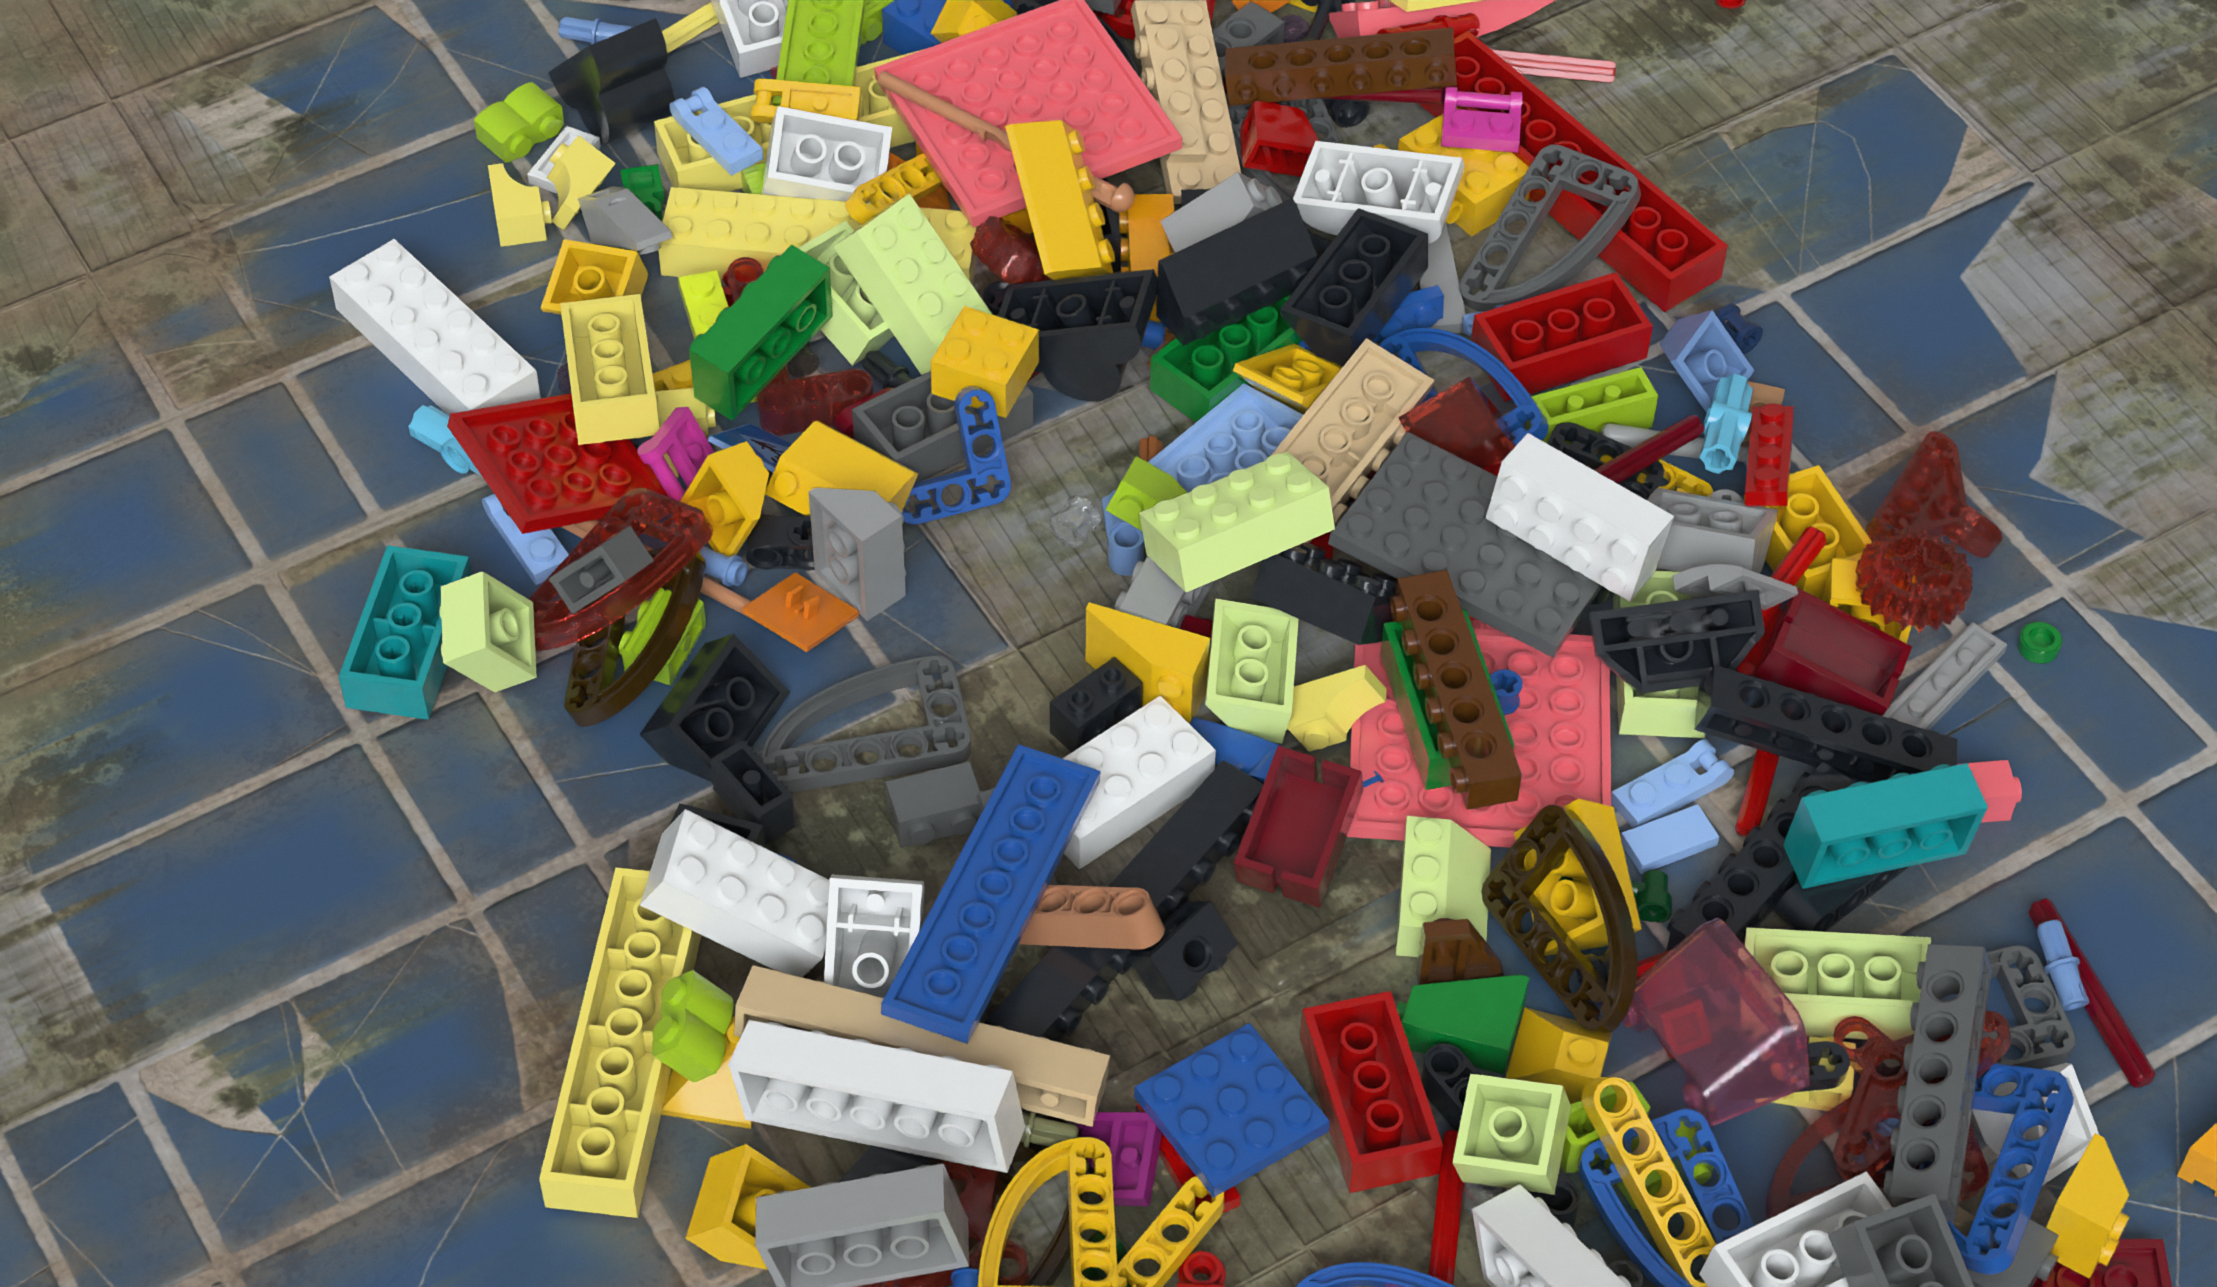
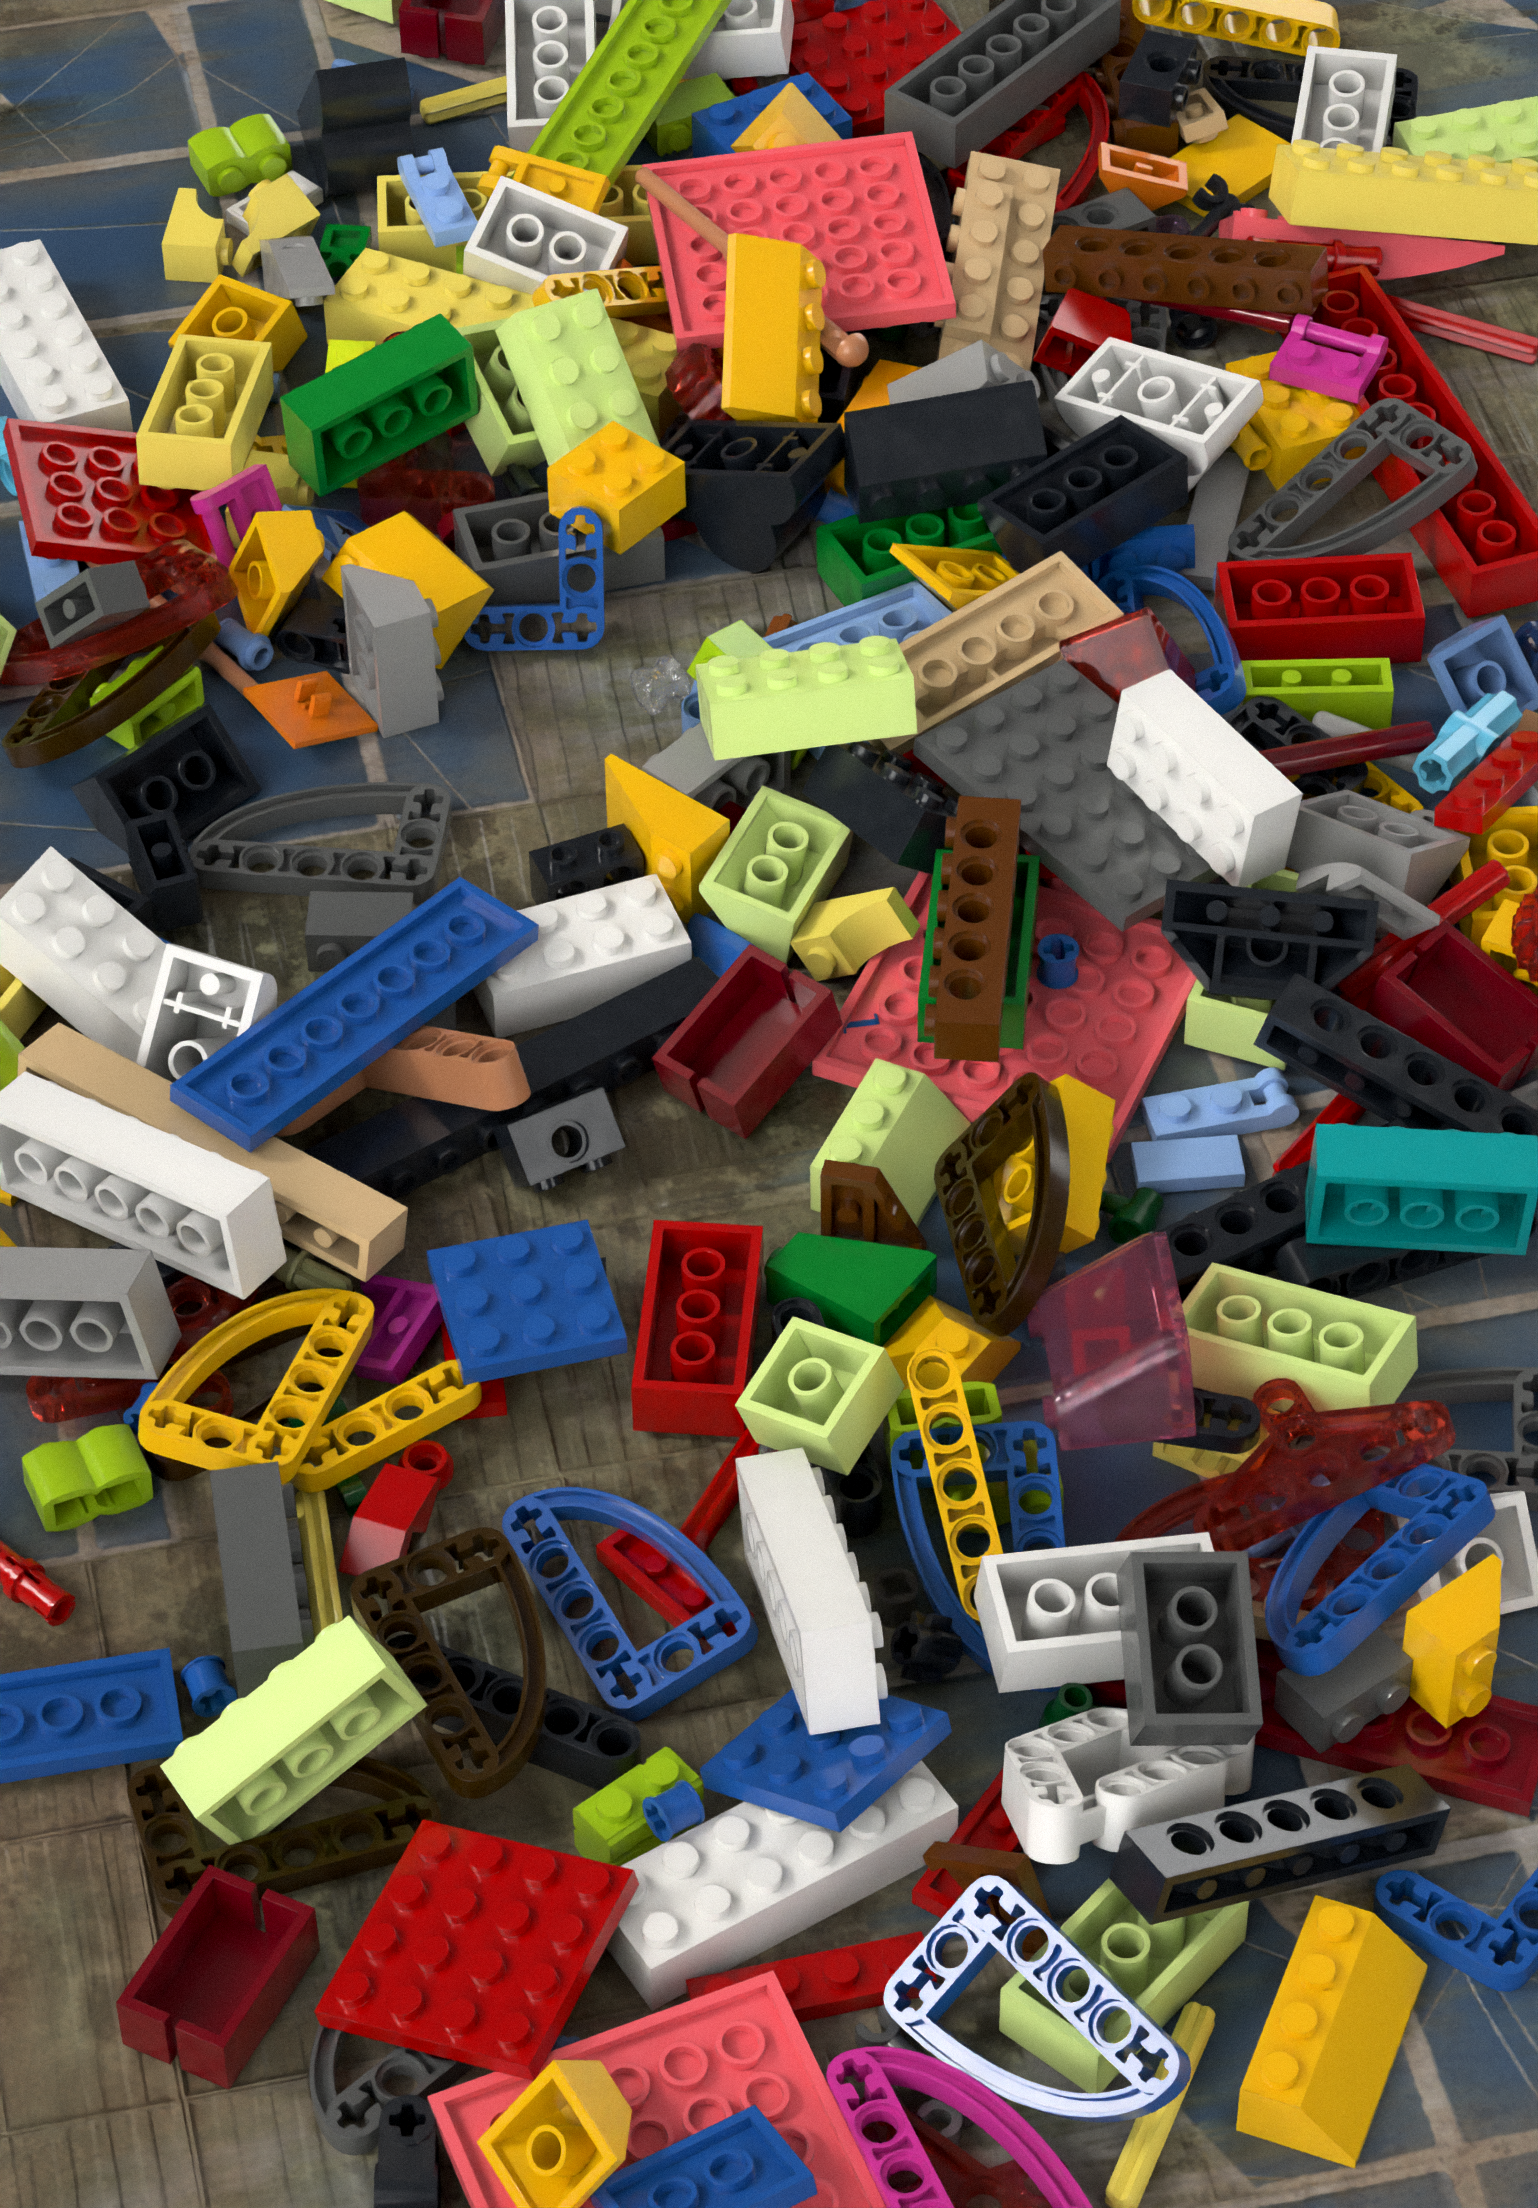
camera: 20 degrees right, 5 degrees down
(1945, 972) = (1340, 1453): dark grey brick -> none

